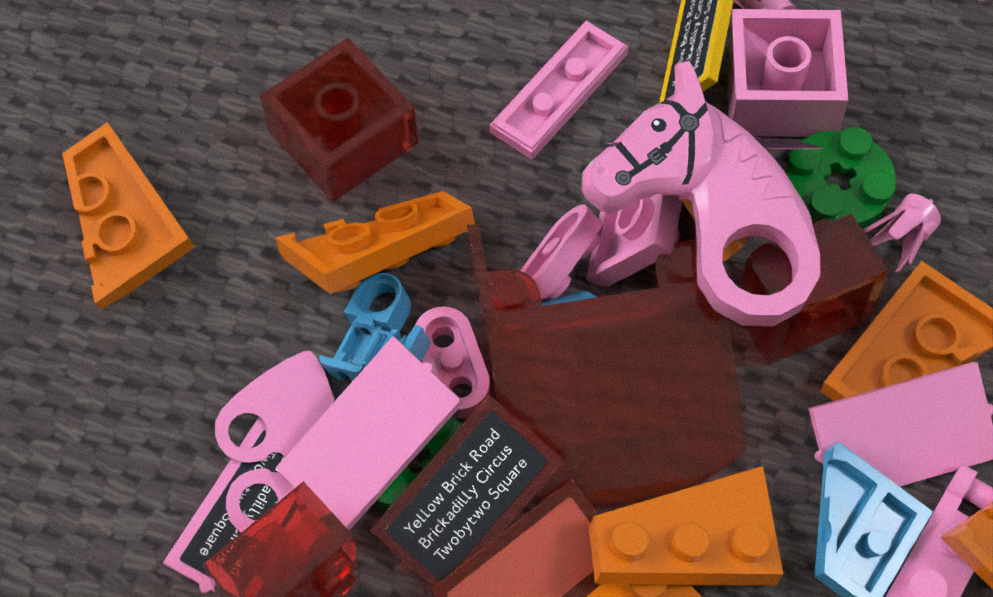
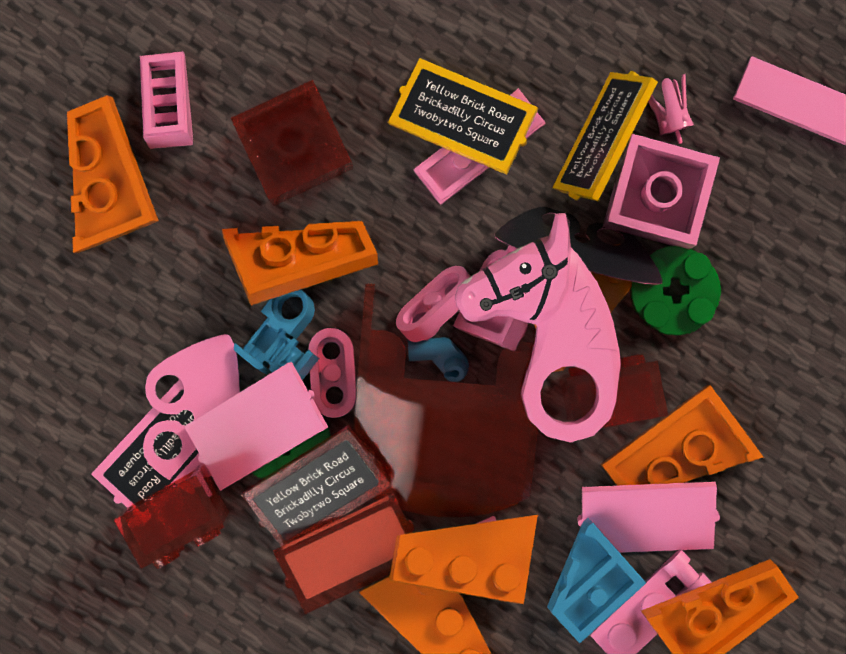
camera: 15 degrees right, 25 degrees up
(188, 152) = (165, 135): none -> bright pink slope
(532, 58) = (463, 116): none -> piece
(914, 218) = (716, 346): bright pink piece -> none

